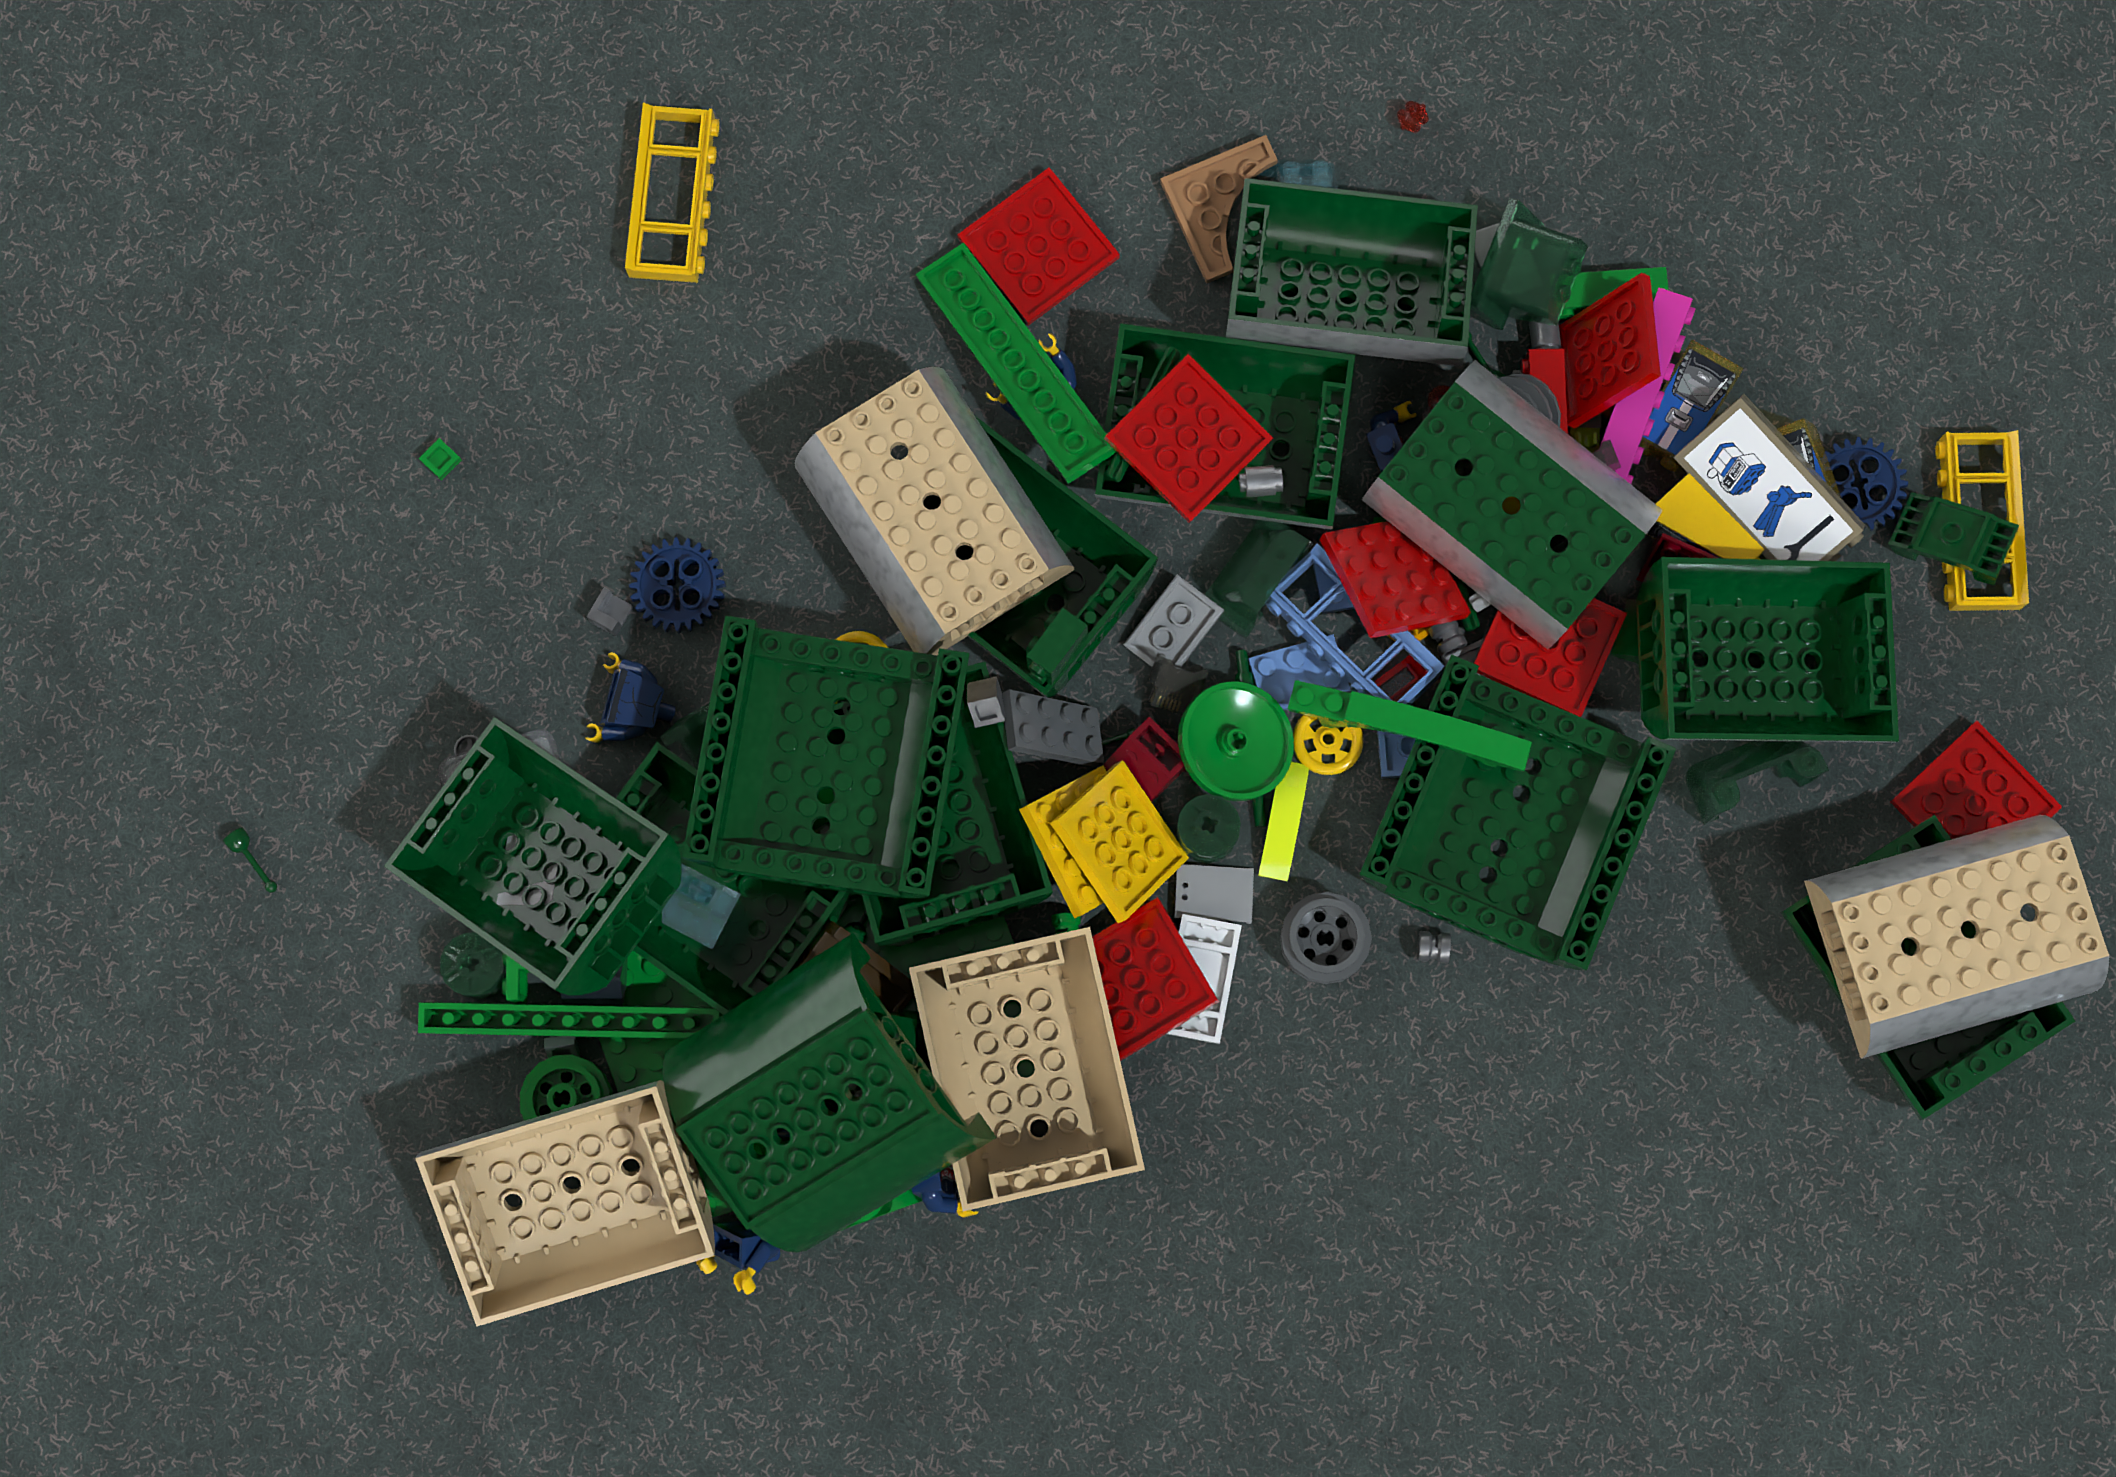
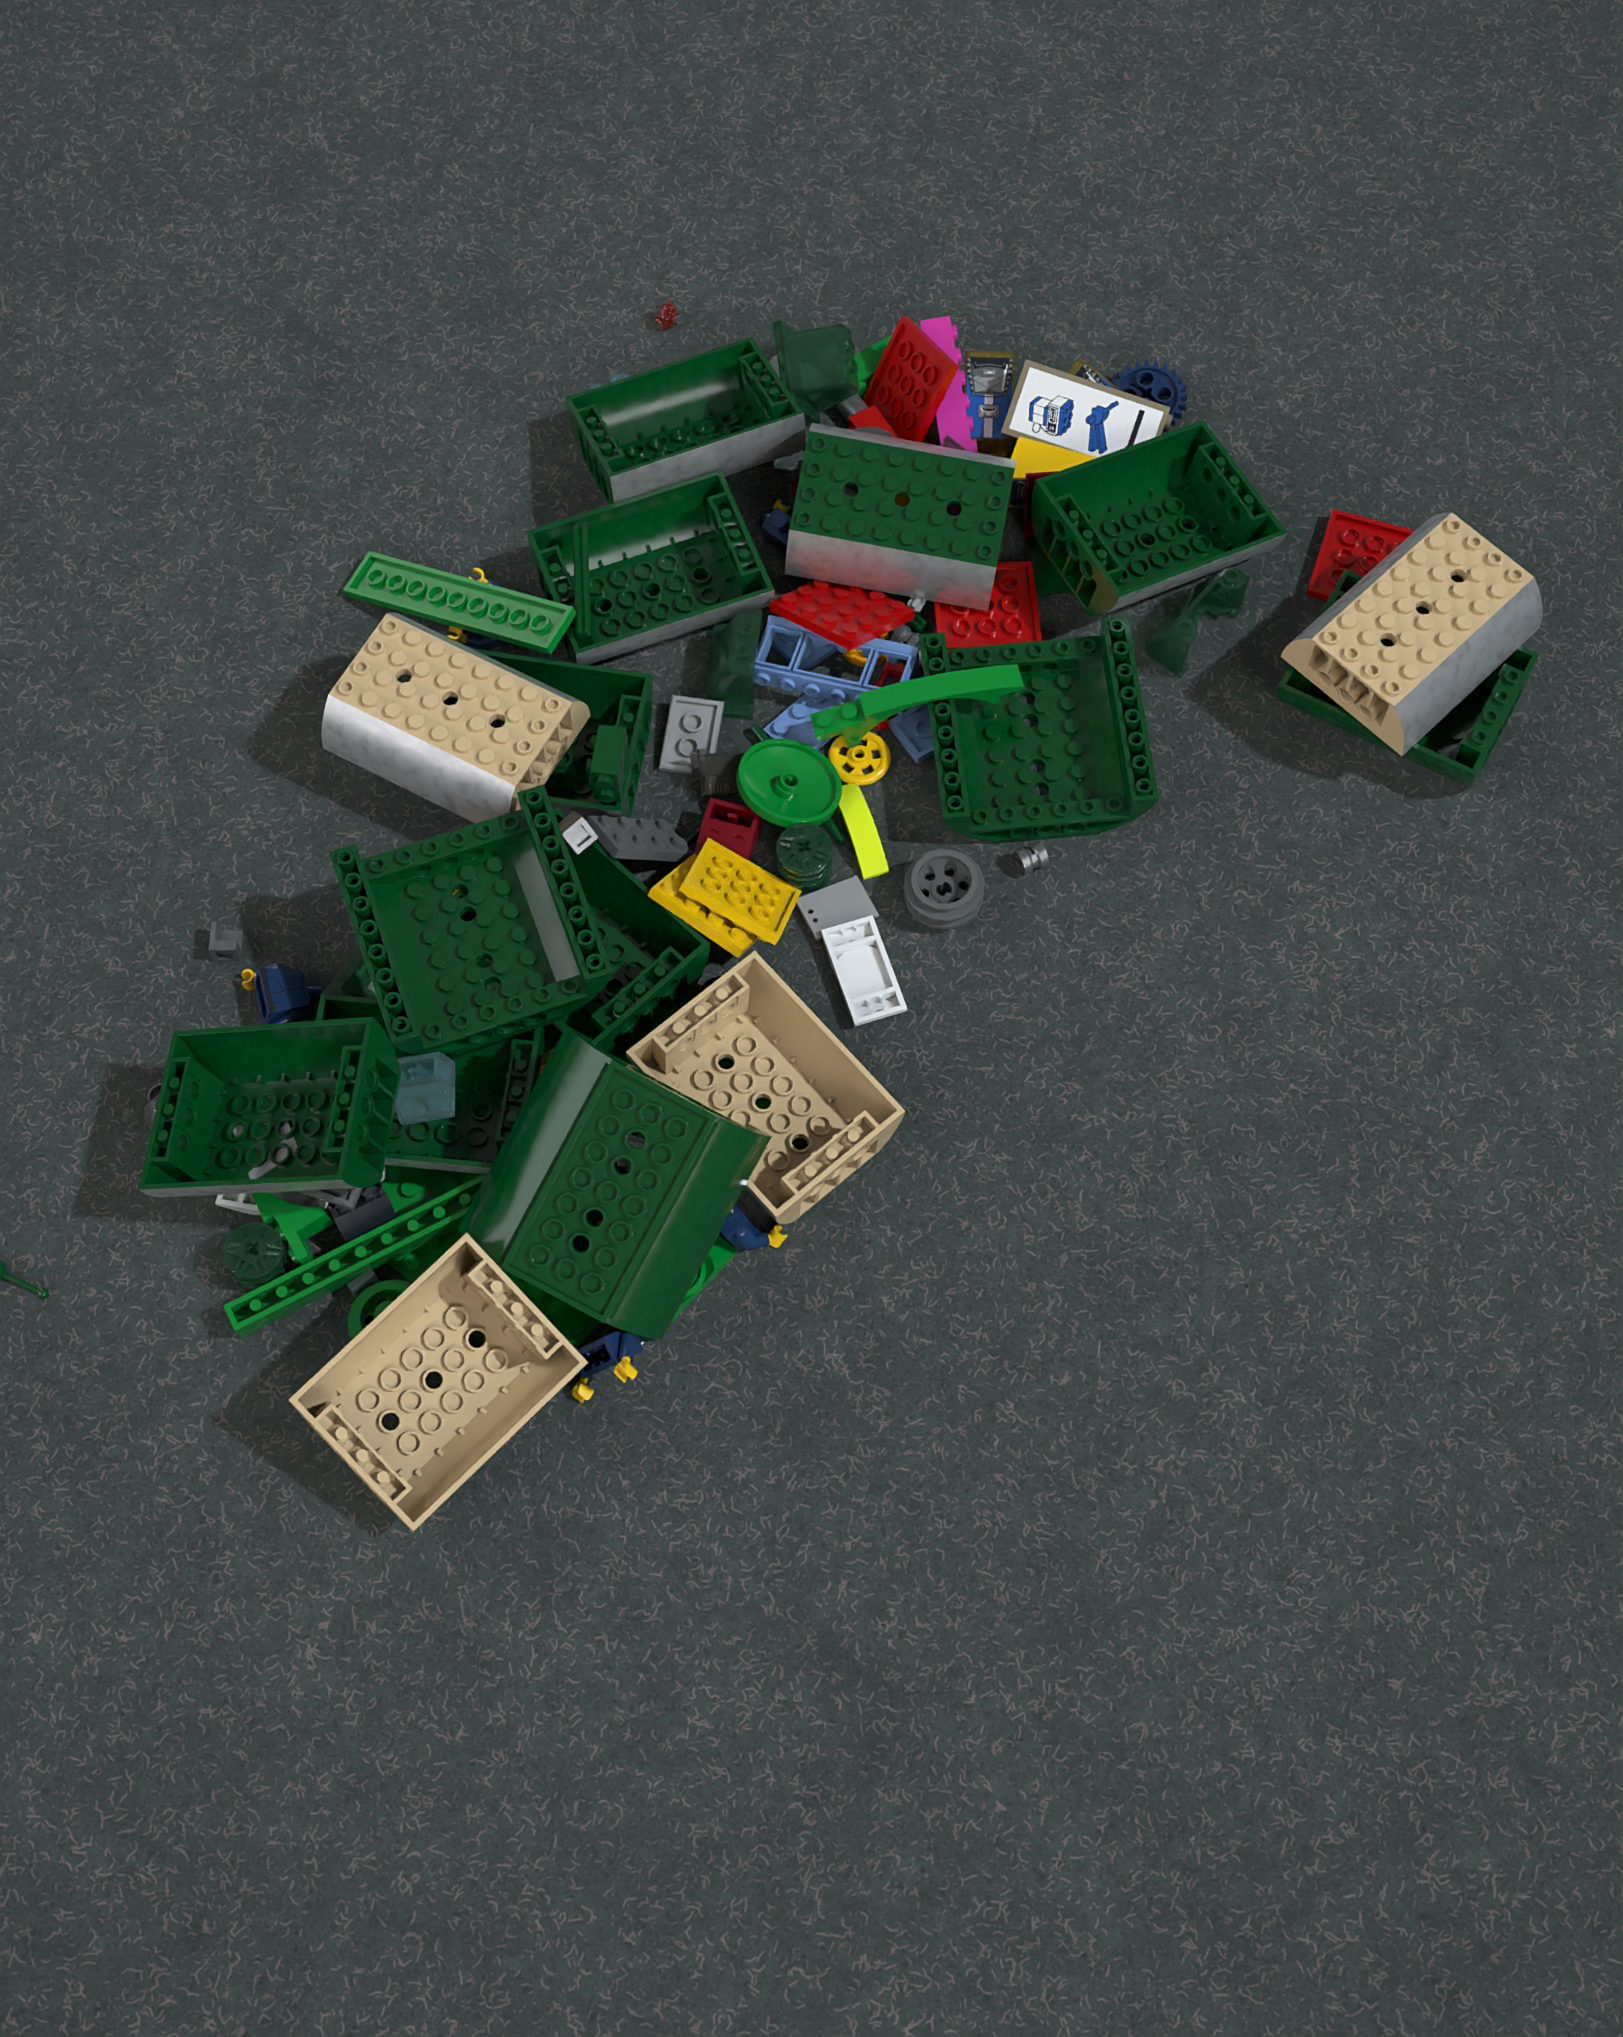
camera: 30 degrees left, 15 degrees down
(440, 459) = (20, 899): green plate -> none
(650, 586) = (248, 907): dark blue gear -> none
(700, 206) = (137, 679): yellow window -> none
(1039, 246) = (430, 524): red plate -> none
(1149, 978) = (828, 979): red plate -> none
(1188, 438) = (626, 576): red plate -> none
(1204, 198) = (541, 439): medium nougat plate -> none
(1261, 480) = (701, 580): flat silver brick -> none
(1950, 480) = (1234, 398): yellow window -> none
(1954, 536) = (1237, 391): dark green plate -> none

